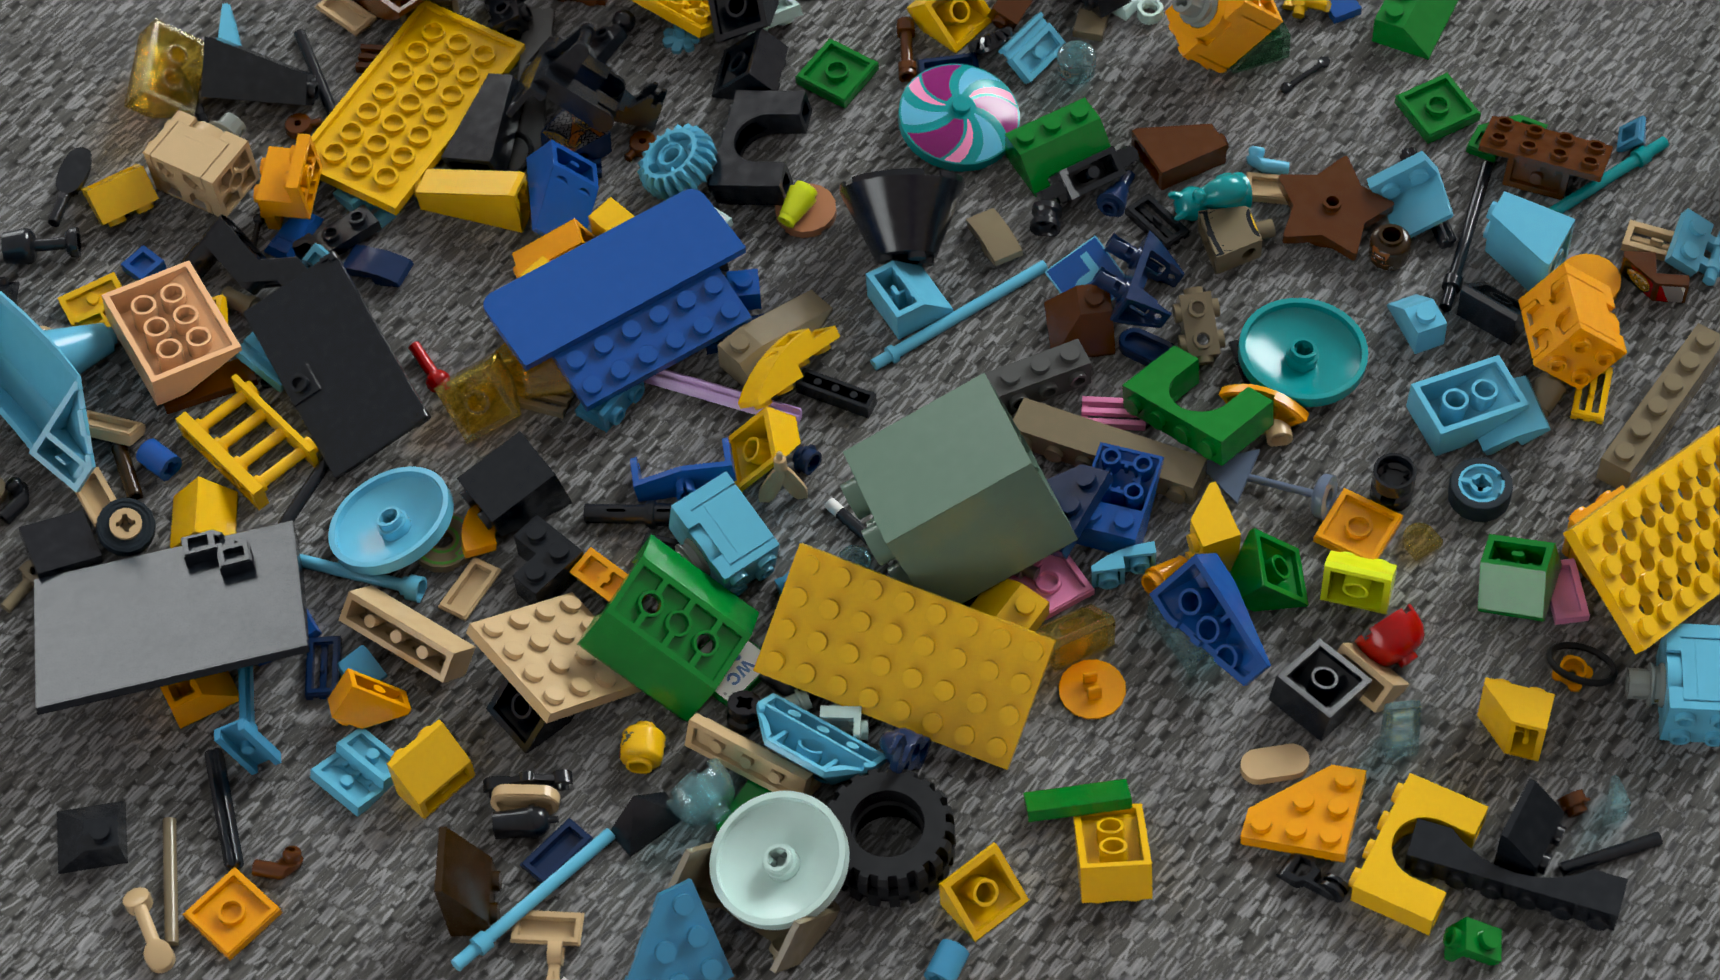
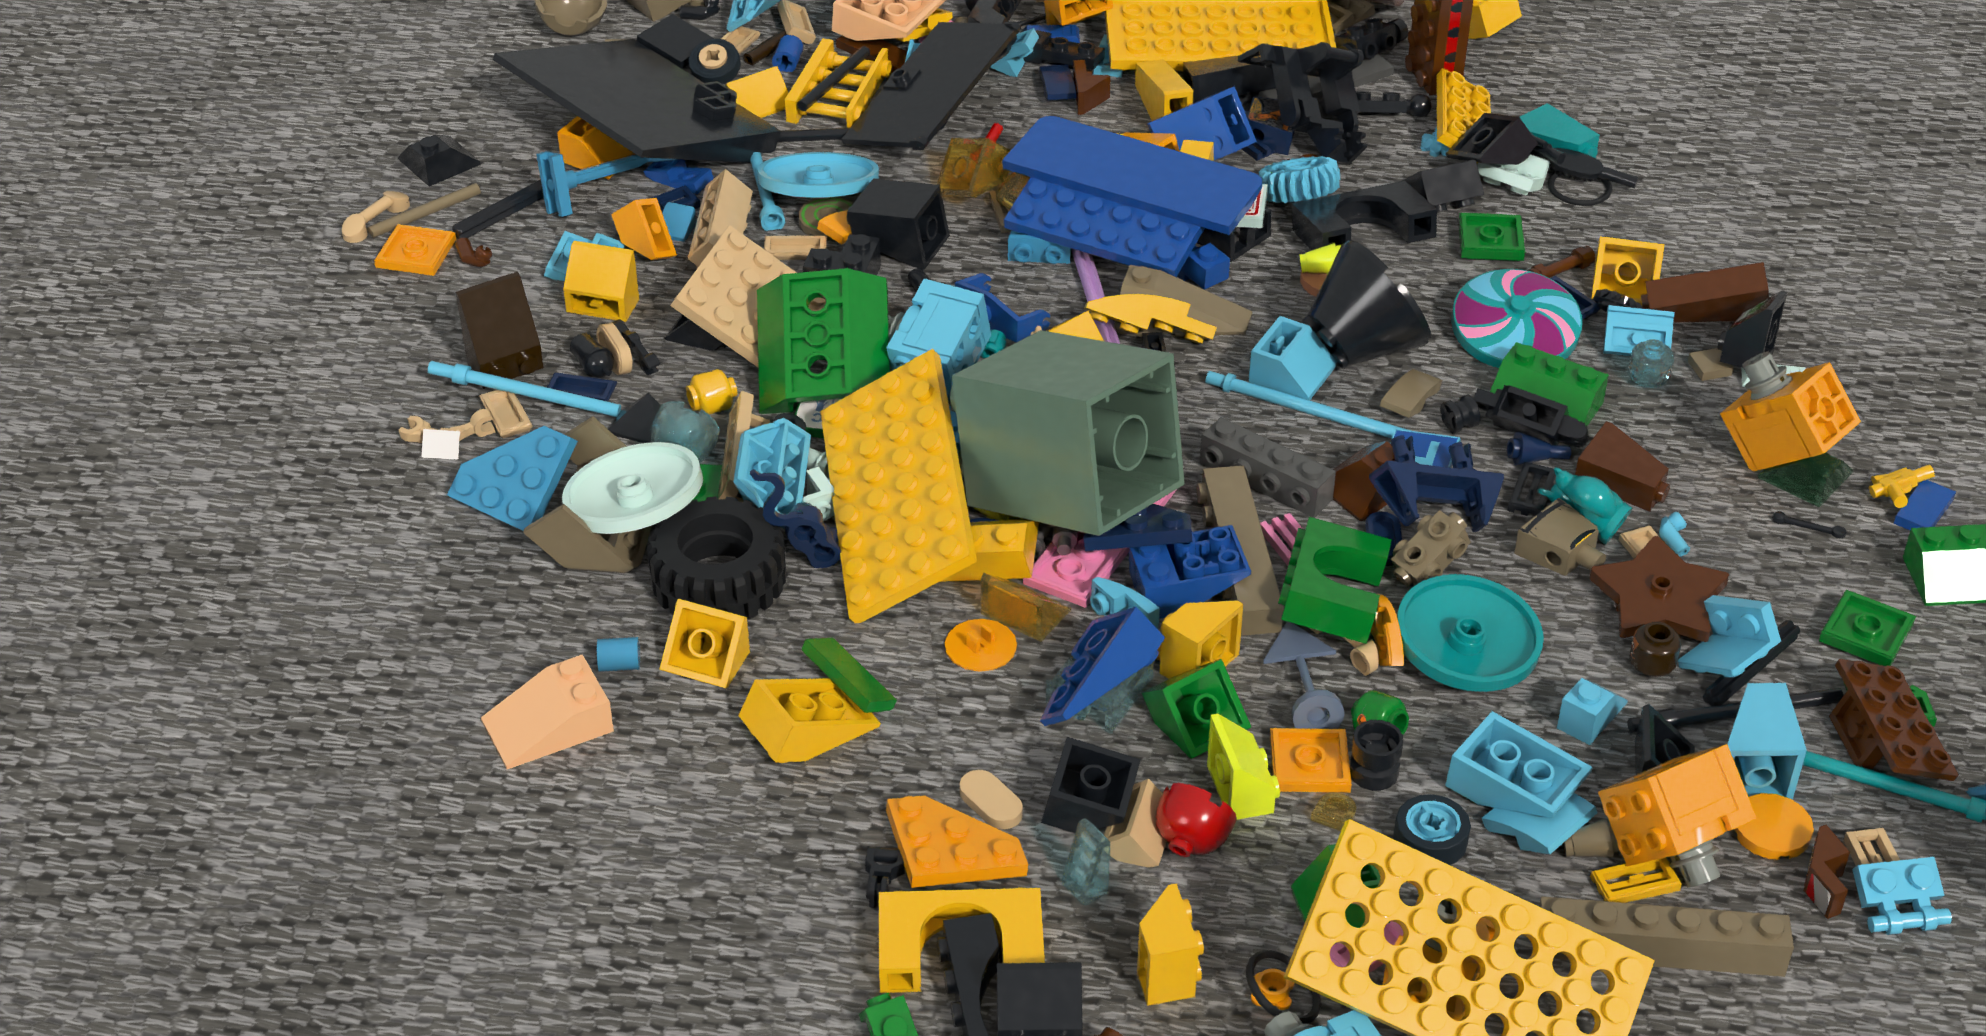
camera: 55 degrees right, 15 degrees down
(247, 439) = (831, 80): none -> black bar
(412, 247) = (1090, 88): none -> reddish brown slope
(1349, 458) = (1380, 706): none -> green head

